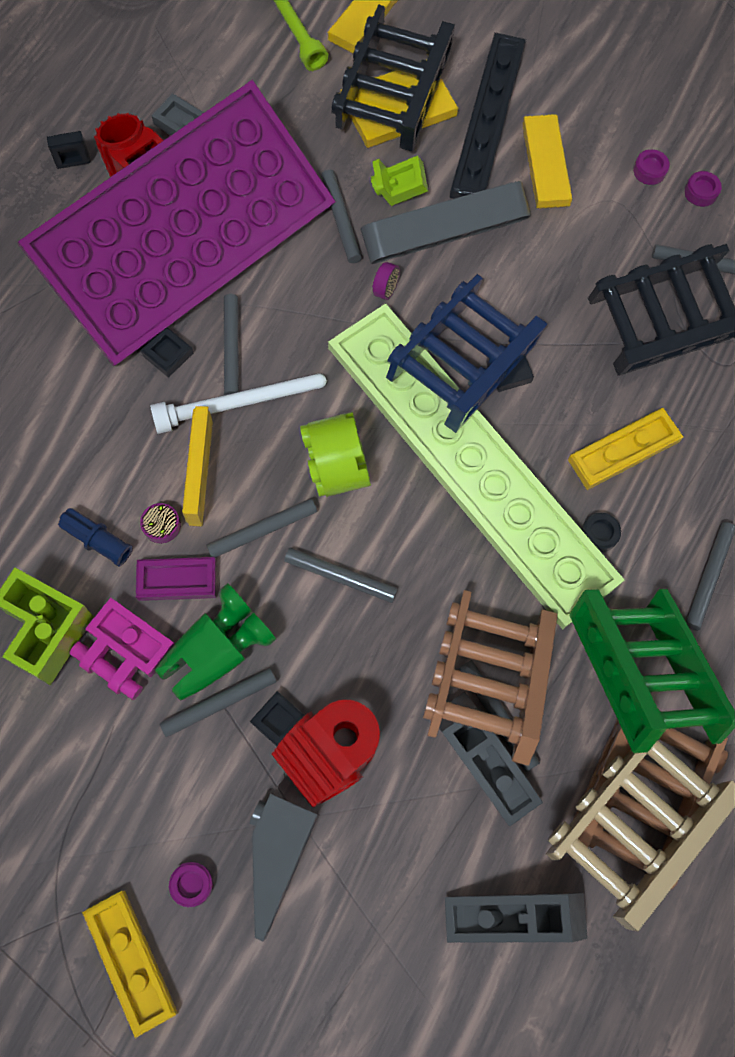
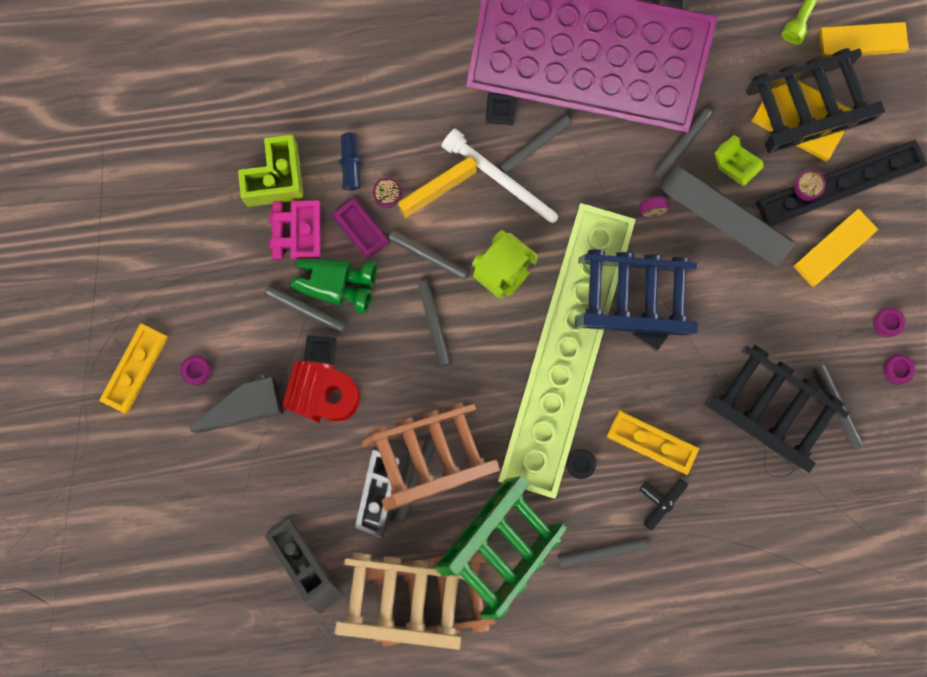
camera: 60 degrees right, 10 degrees up
(471, 136) = (809, 185): none -> tile
(698, 479) = (664, 503): none -> black piece

